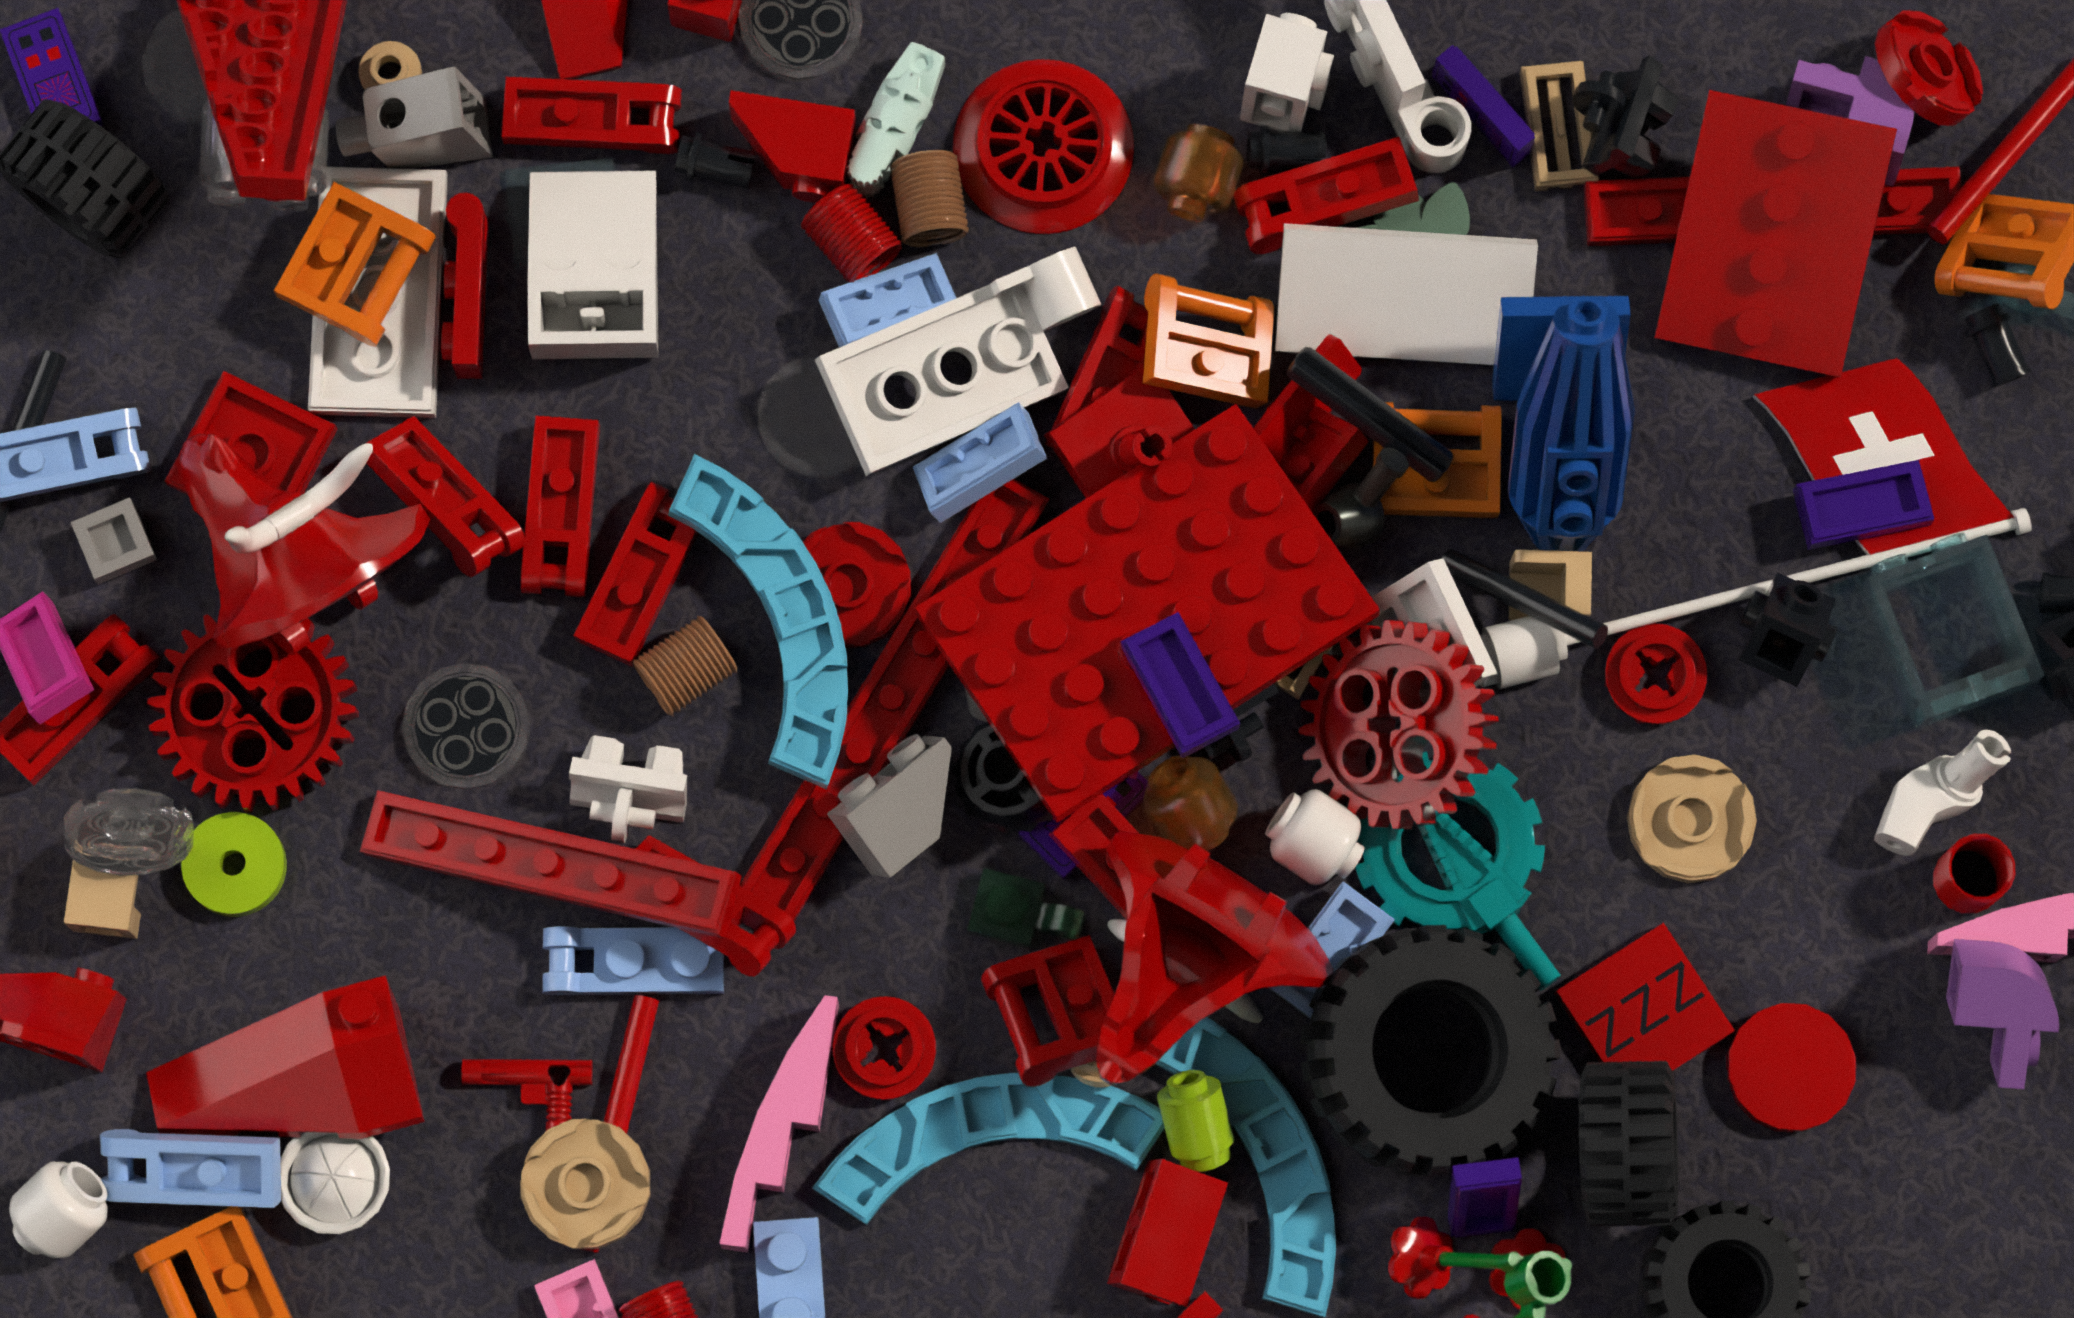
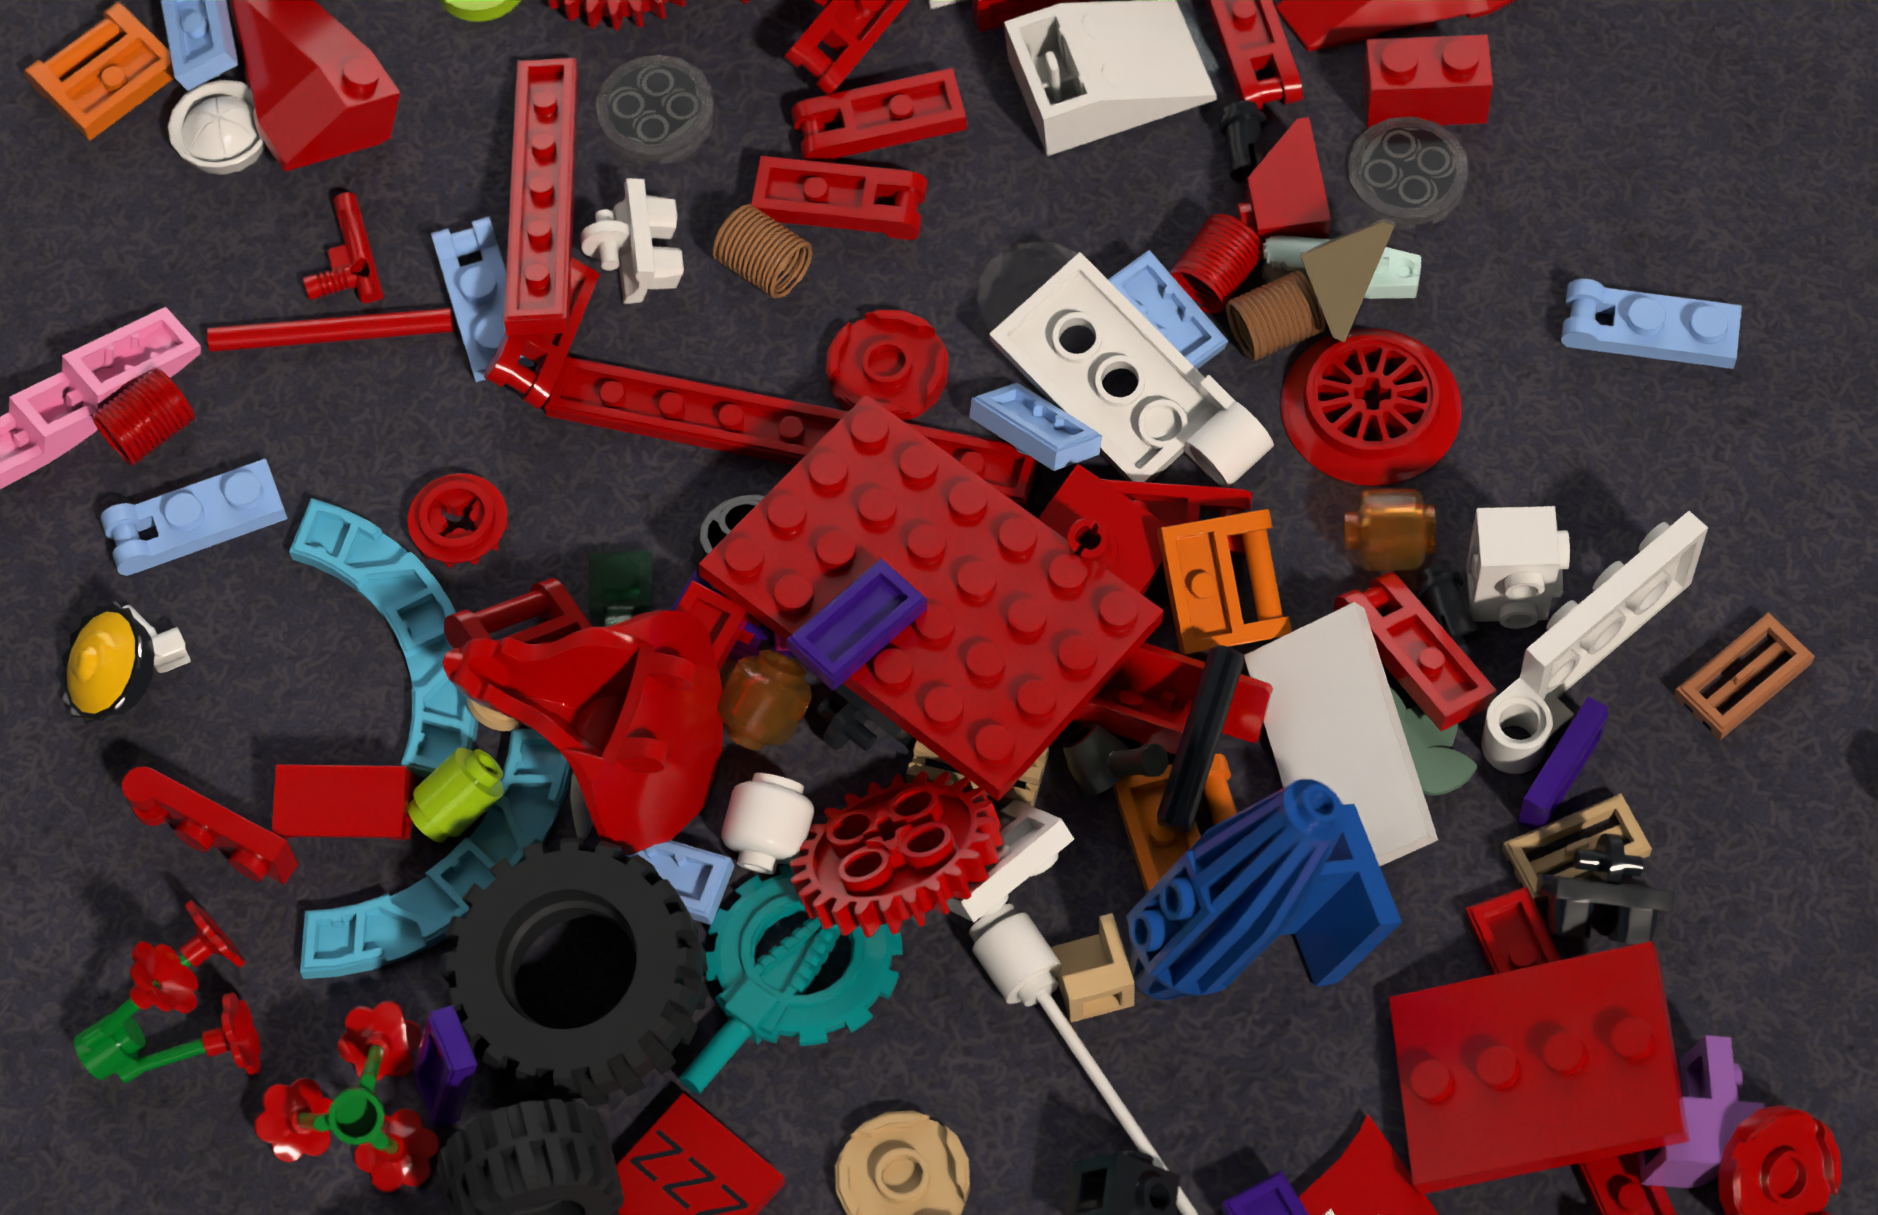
camera: 80 degrees right, 15 degrees down
(585, 1184) = (263, 313): tan tile -> none
(790, 1103) = (385, 452): bright pink slope -> none
(796, 604) = (840, 324): medium azure tile -> none
(898, 809) = (677, 454): light grey slope -> none
(924, 110) = (1343, 271): none -> dark tan slope
(1525, 599) = (1066, 938): black bar -> none
(1657, 645) = (1031, 1070): red gear -> none

